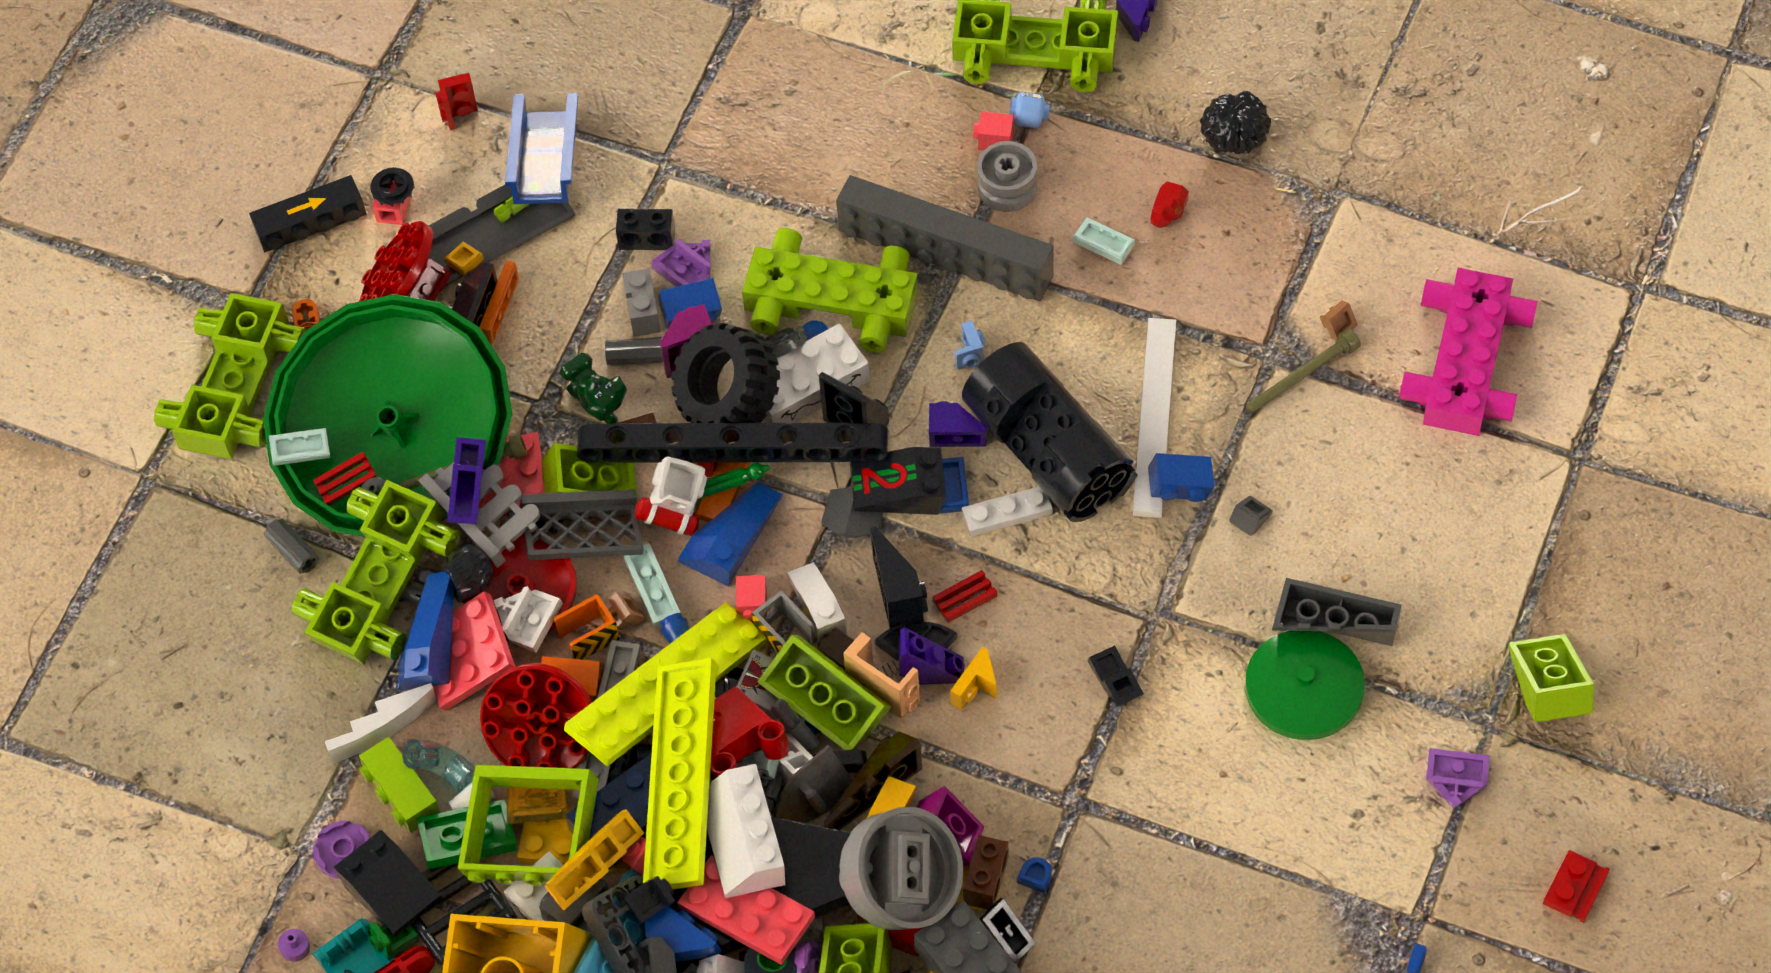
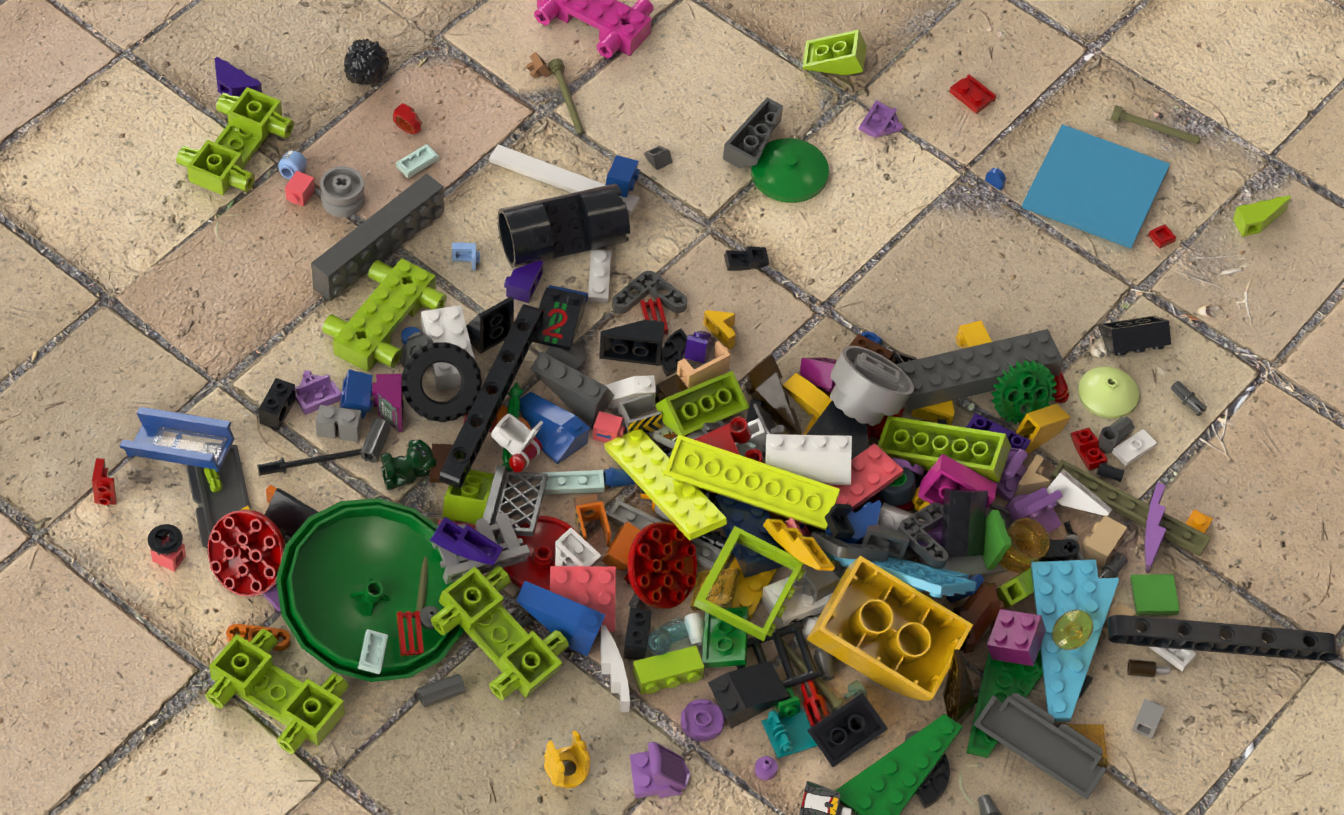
camera: 80 degrees left, 5 degrees down
(229, 706) = (576, 753): none -> yellow piece
(244, 822) = (658, 772): none -> medium lavender piece
(307, 213) = (150, 608): black brick -> none
(443, 726) = (637, 634): none -> black brick
(469, 571) = (532, 568): black hair -> none
(560, 269) = (281, 465): none -> black piece
(800, 531) = (574, 388): none -> dark grey wedge
(1011, 578) = (649, 288): none -> dark grey beam

